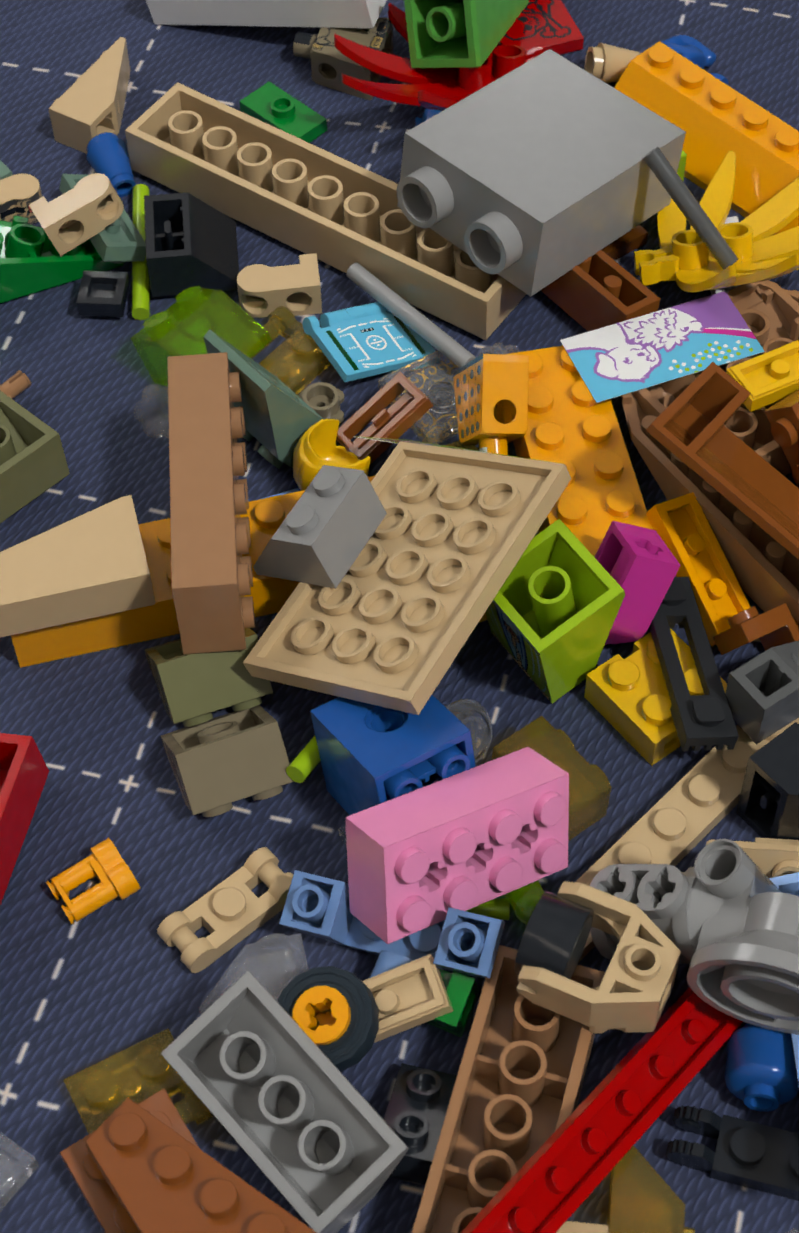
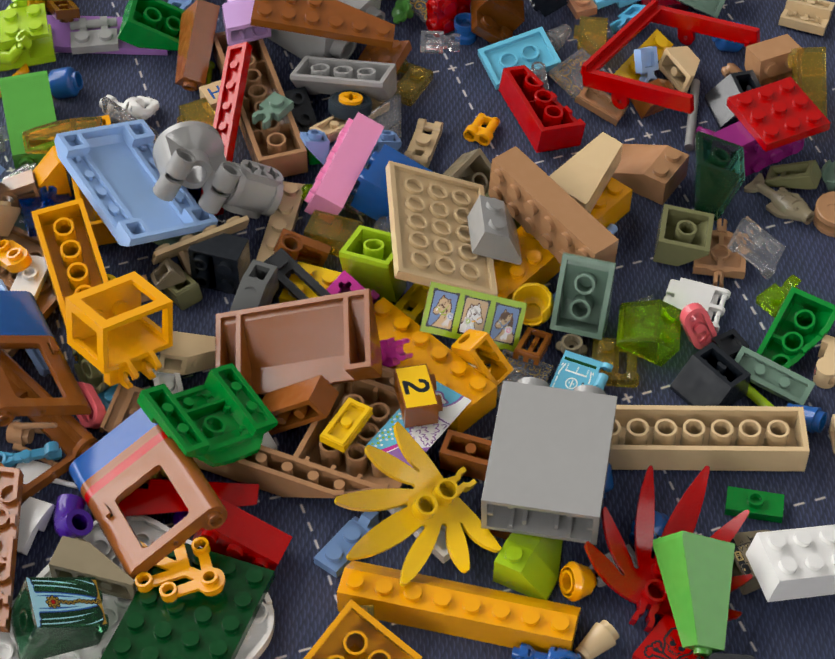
camera: 145 degrees right, 5 degrees down
(79, 212) = (774, 342): tan leg -> none
(88, 374) = (689, 291): none -> white plate
(128, 309) = (697, 325): none -> coral plate
(291, 286) = (646, 388): tan leg -> none
(496, 1084) = (273, 107): none -> sand green plate
(635, 980) = (280, 140): tan piece -> none
(640, 461) = (393, 351): none -> dark pink plate
(646, 355) = (417, 395): none -> brick
(649, 767) = (302, 248): none -> dark orange plate
(690, 208) = (450, 473): dark grey bar -> none

